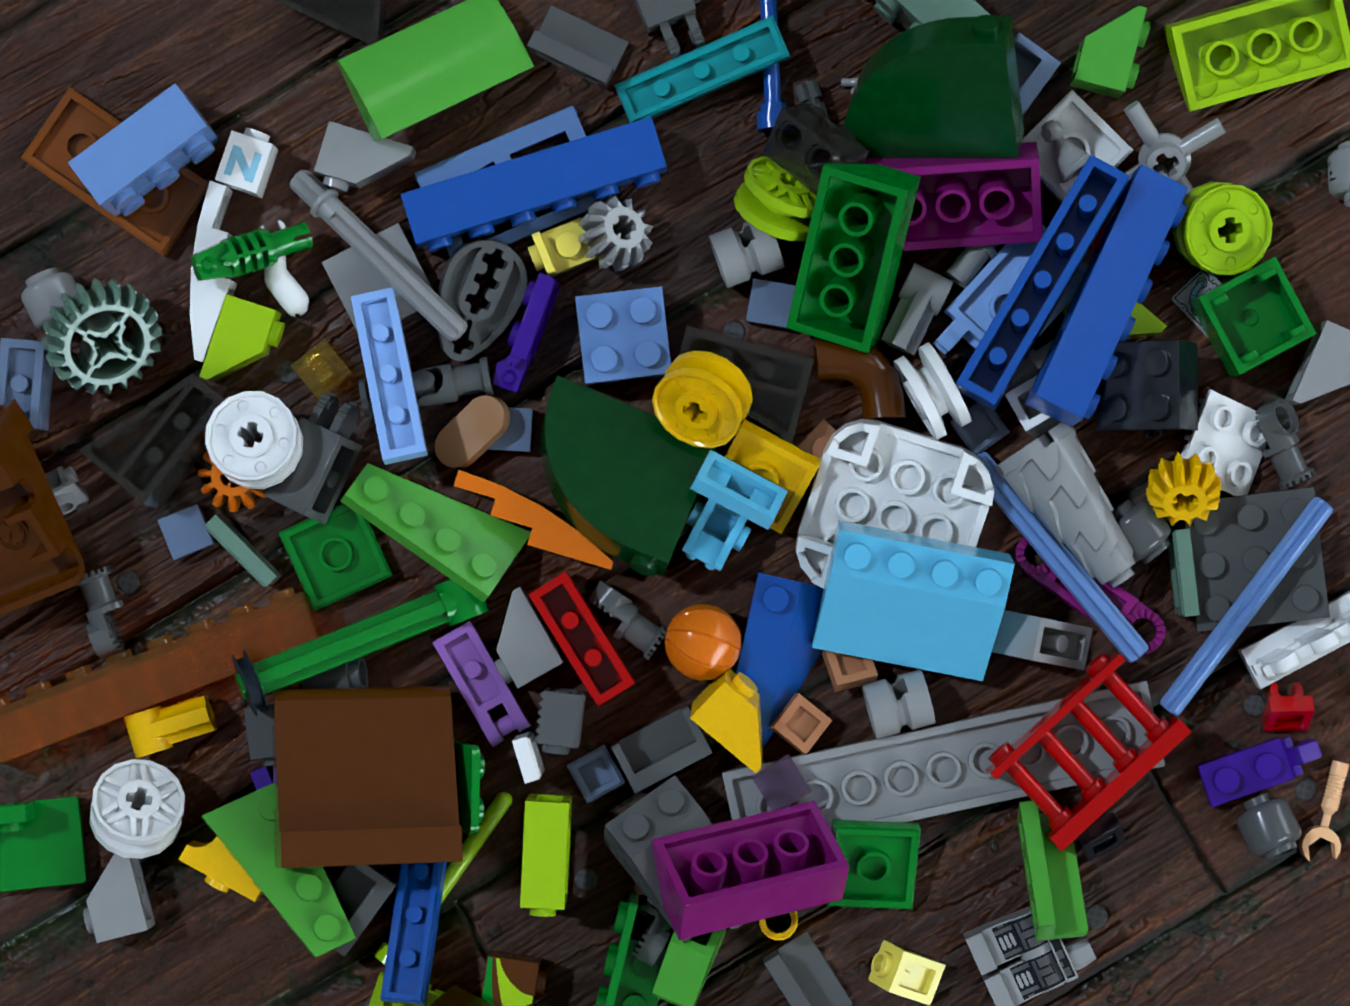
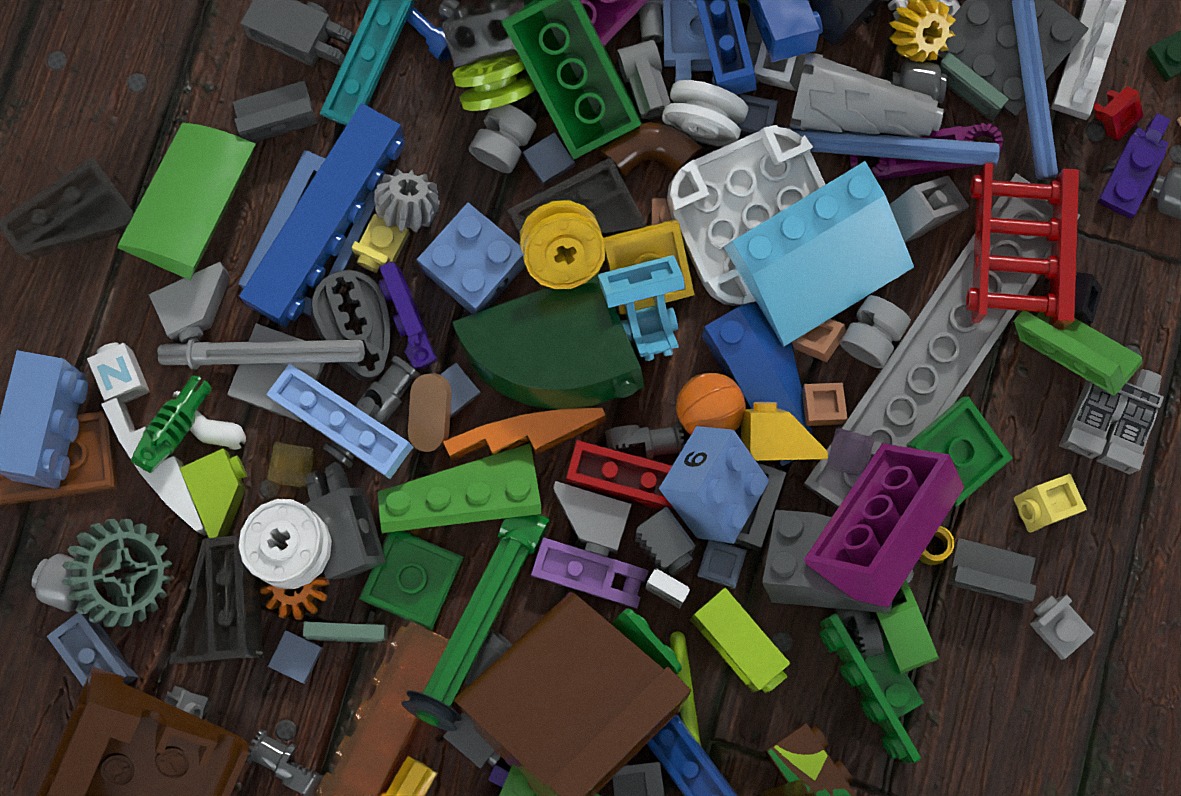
camera: 40 degrees left, 10 degrees down
(641, 711) = (714, 484): none -> medium blue brick

